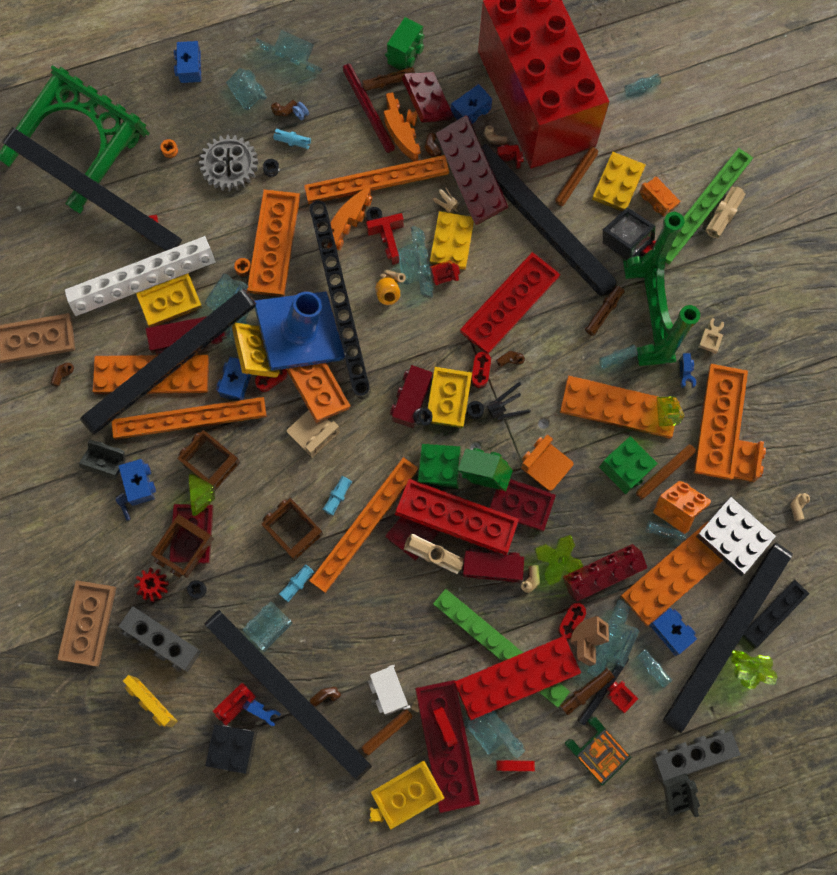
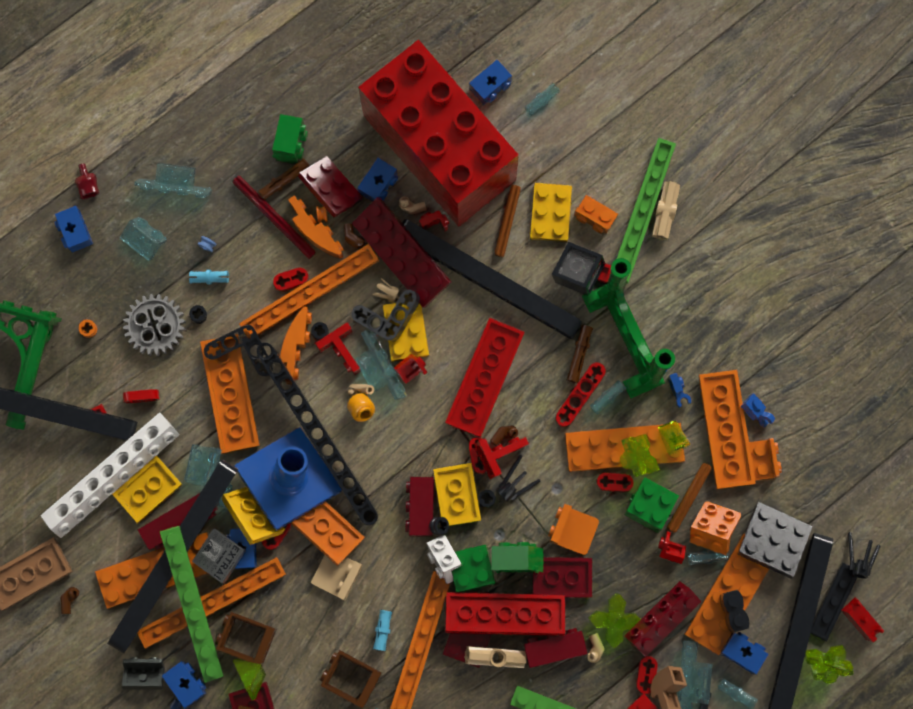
camera: 15 degrees left, 5 degrees up
(169, 409) = (191, 603): none -> bright green plate
(194, 219) = (141, 396): none -> red beam
(210, 376) = (219, 556): none -> dark grey tile
(214, 30) = (86, 183): none -> dark red piece
(238, 264) = (202, 427): orange bush -> none
(283, 110) = (190, 248): reddish brown arm -> none
(305, 203) = (247, 343): none -> black beam
(363, 163) = (292, 284): none -> red beam
(416, 446) = (444, 557): none -> white bracket
(437, 227) = (386, 324): none -> black beam
(492, 371) = (489, 457): none -> red bracket
(593, 347) = (578, 393): none -> red beam
(598, 439) = (615, 487): none -> red beam
(604, 54) = (494, 73): none -> blue brick
(630, 414) = (638, 456): none -> clear neon green plant
(632, 513) = (671, 550): none -> red bracket
(676, 580) = (732, 605): none -> black brick
(711, 338) = (692, 348): tan plate -> none
(754, 412) = (755, 409): none -> blue plate
(797, 639) = (862, 620): none -> red hinge
(798, 504) = (824, 487): tan arm -> none
(813, 590) = (861, 568): none -> black plant

